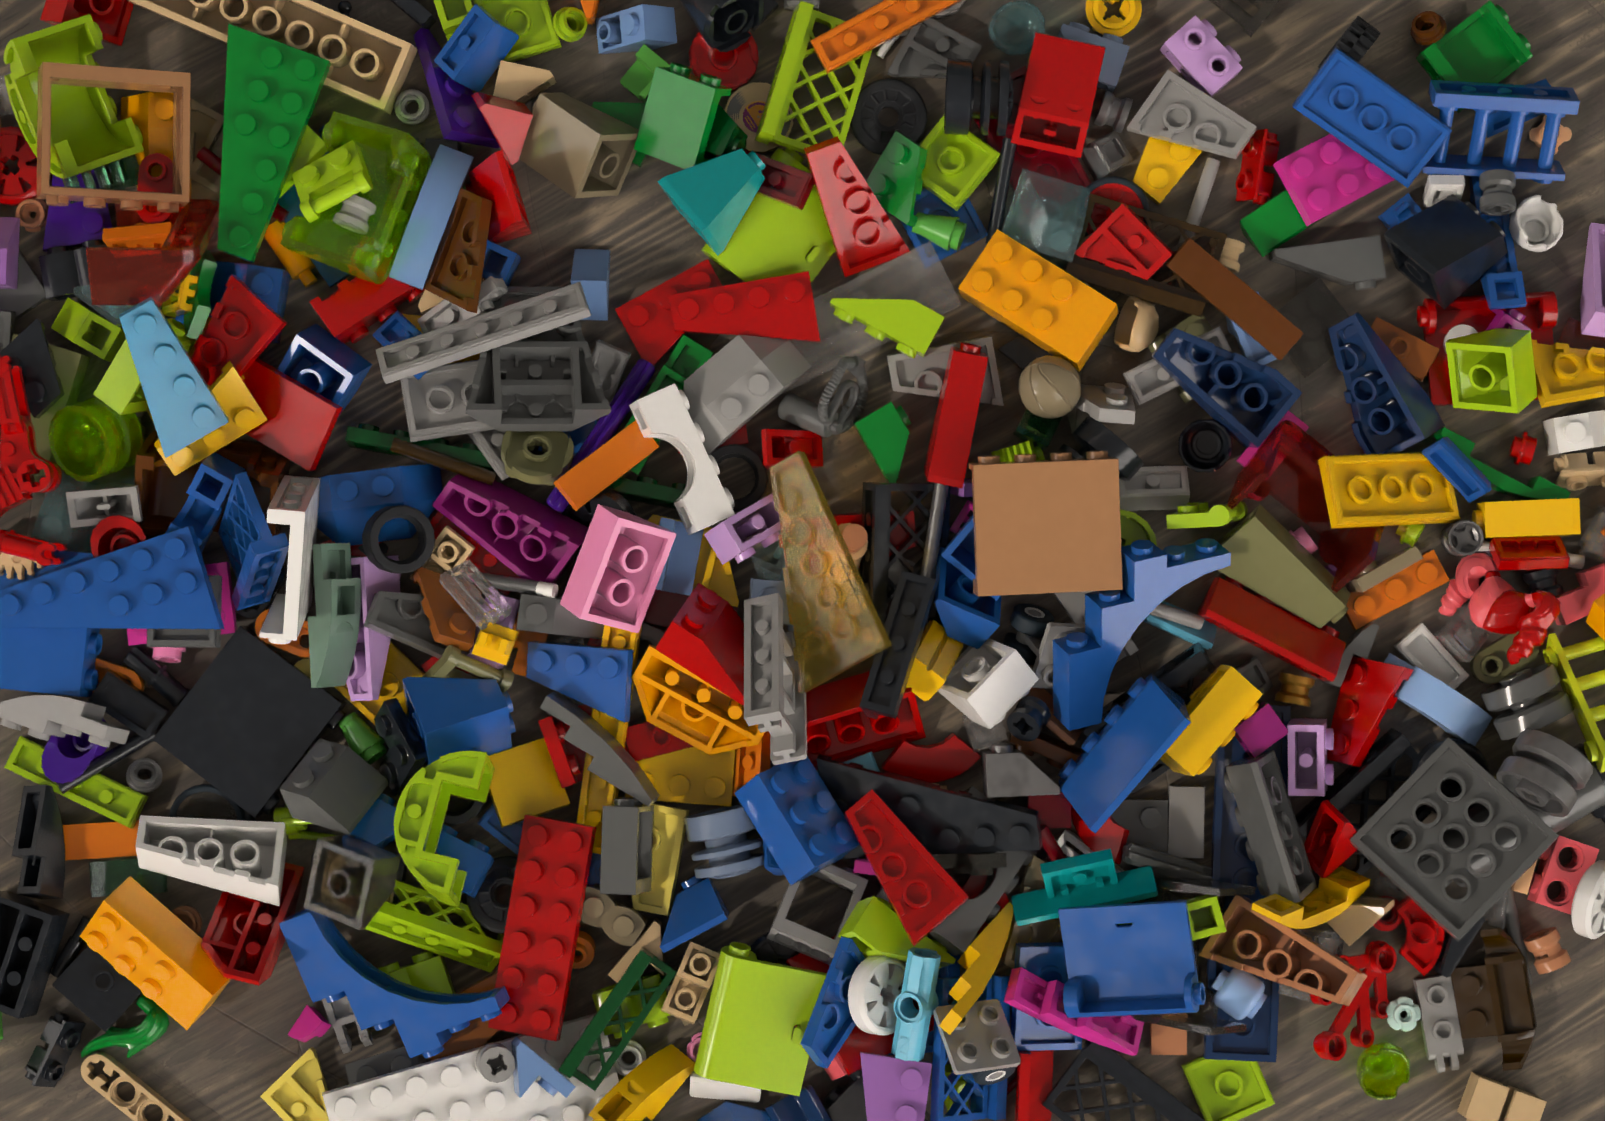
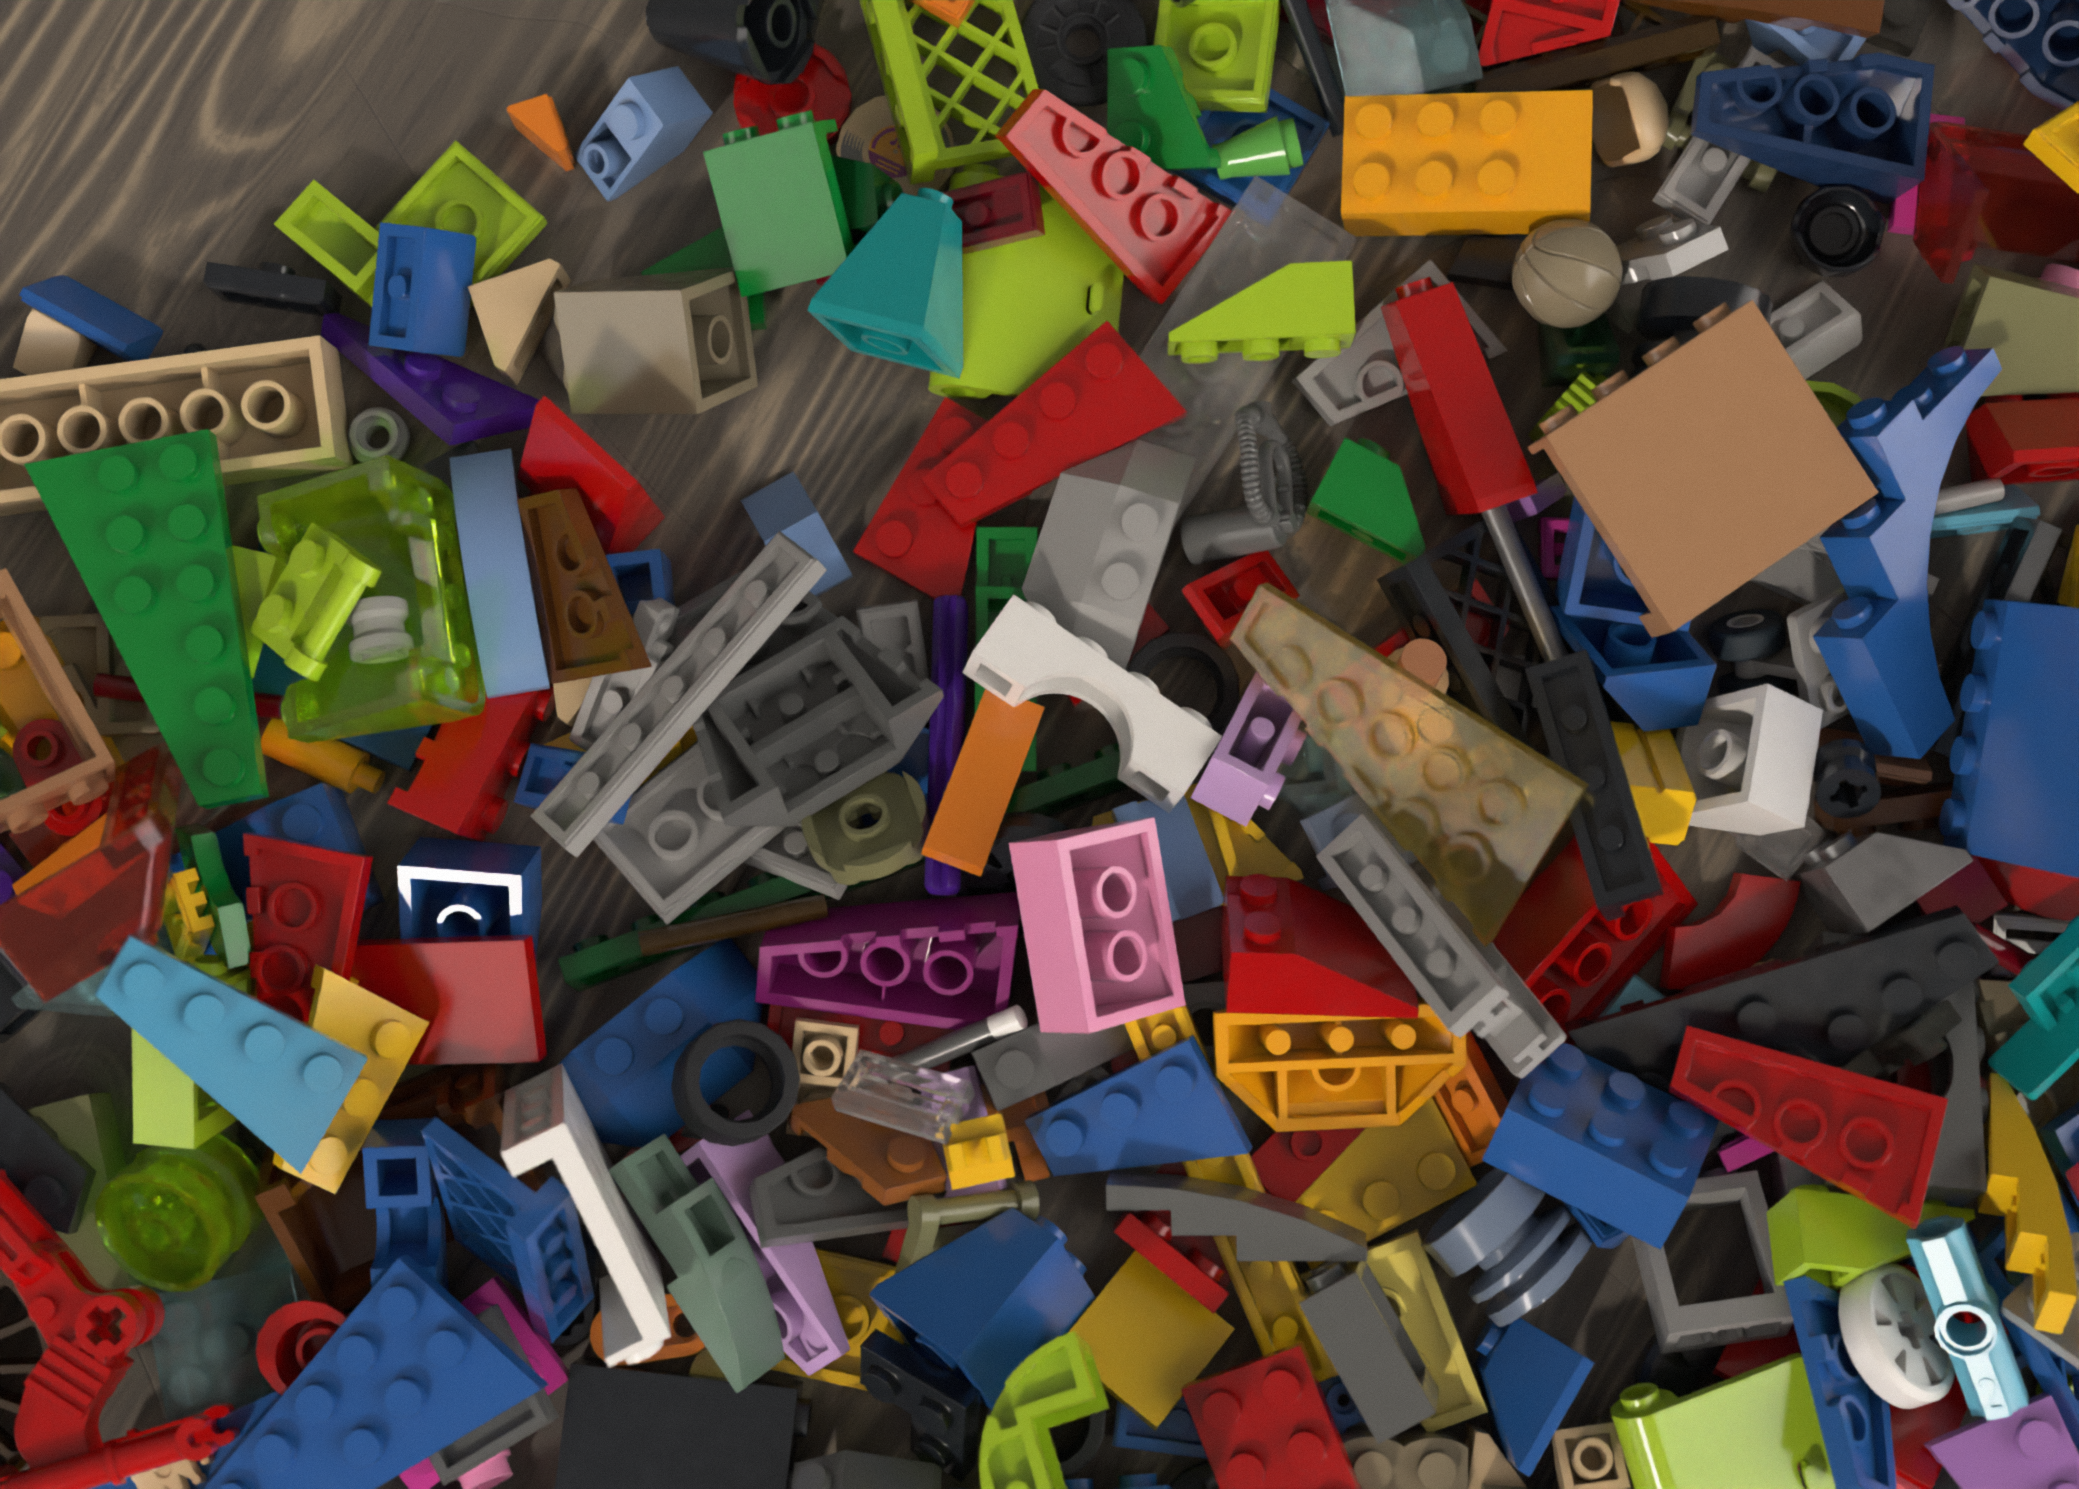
camera: 25 degrees left, 5 degrees down
(89, 330) = (76, 1051): lime slope -> none
(100, 501) = (236, 1310): light grey slope -> none
(362, 738) = (859, 1422): bright green cone -> none
(507, 122) = (527, 368): slope -> none
(577, 22) = (540, 180): lime plate -> none
(640, 75) = (689, 191): bright green panel -> none
(1200, 515) = (1895, 333): lime plate -> none

